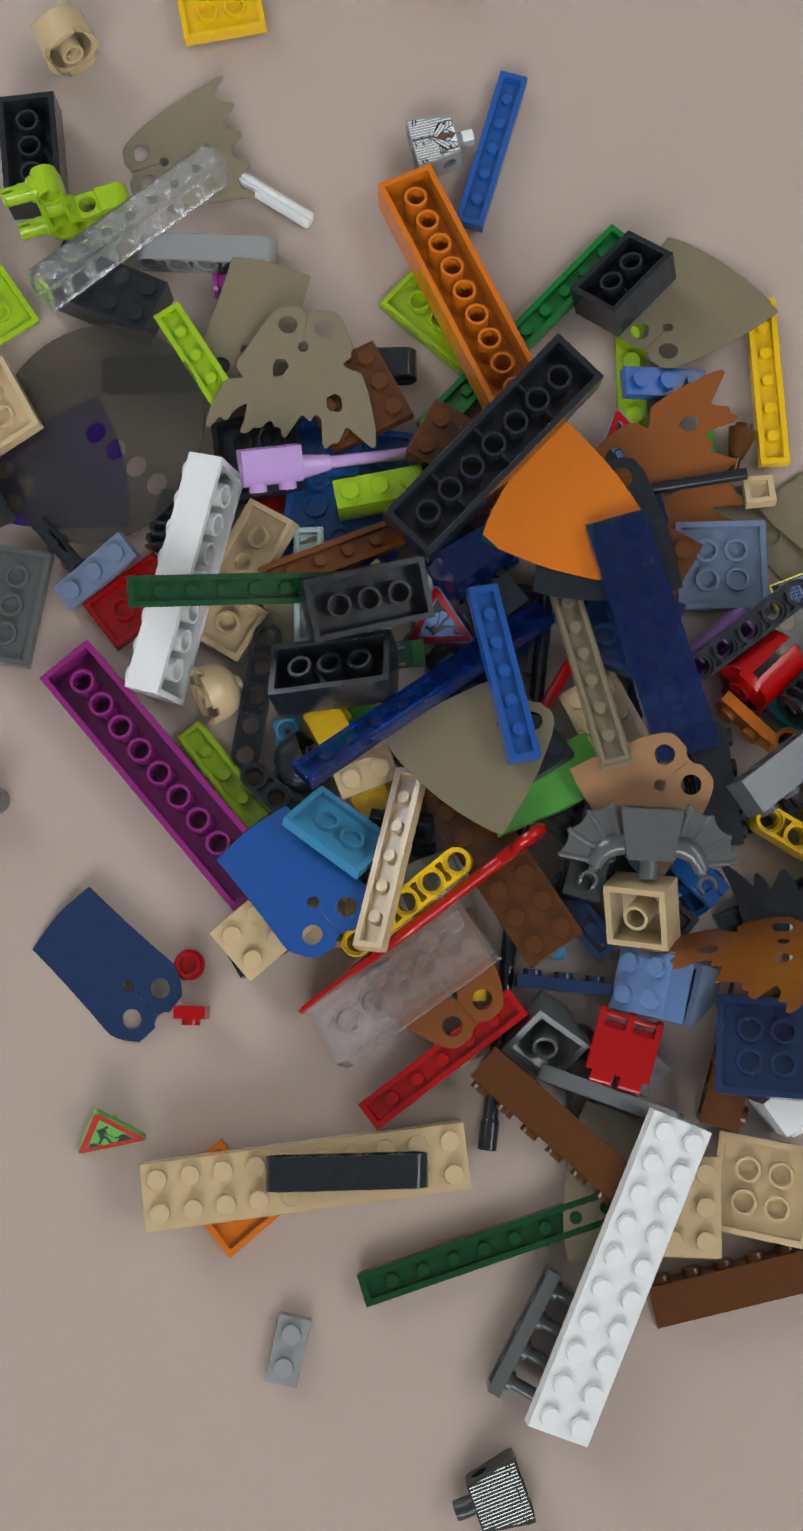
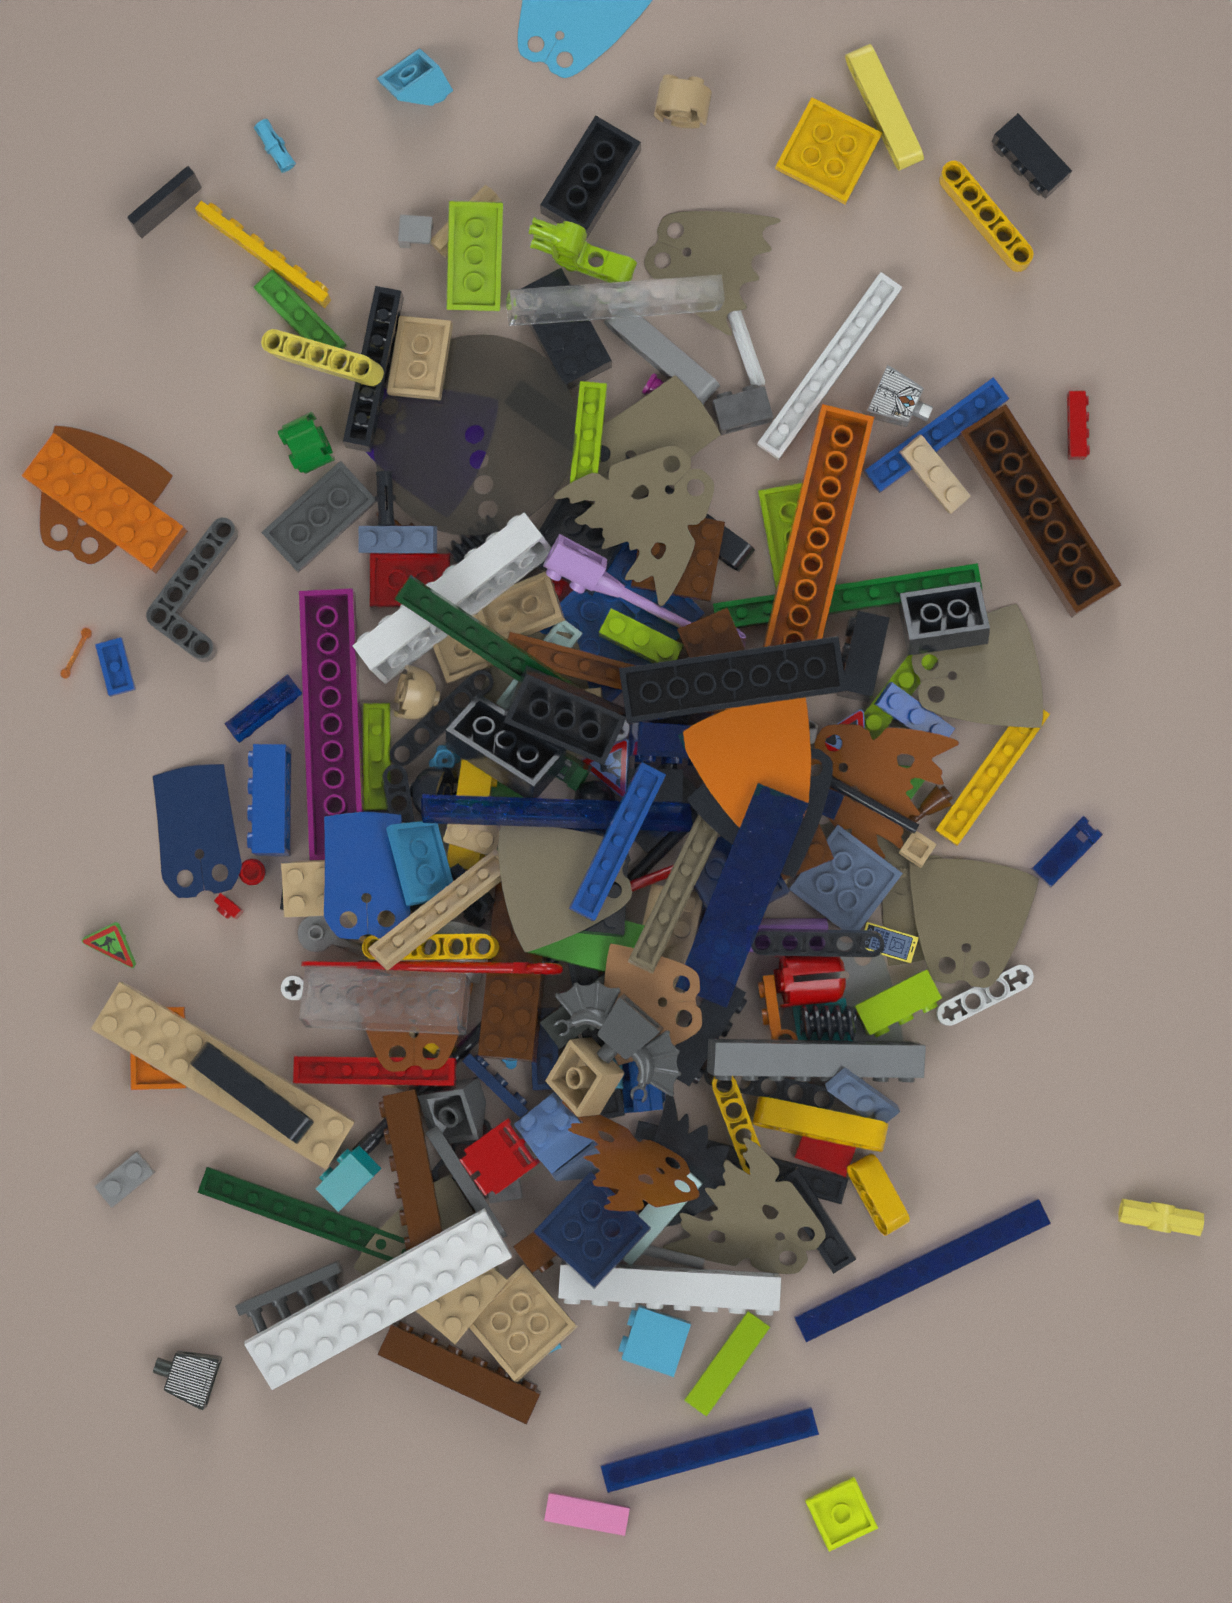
camera: 35 degrees right, 5 degrees up
(88, 810) = (263, 708): none -> clear blue plate
(156, 884) = (270, 800): none -> blue brick
(293, 973) = (317, 936): none -> light grey piece
(299, 1041) = (287, 982): none -> white bush
(313, 246) = (742, 409): none -> flat silver brick
(357, 163) = (829, 366): none -> white plate
(497, 1179) = (348, 1178): none -> teal brick
(516, 179) = (935, 474): none -> tan plate
(579, 333) = (863, 654): none -> black brick
(599, 61) = (1077, 425): none -> red piece
(627, 143) = (1038, 510): none -> reddish brown brick

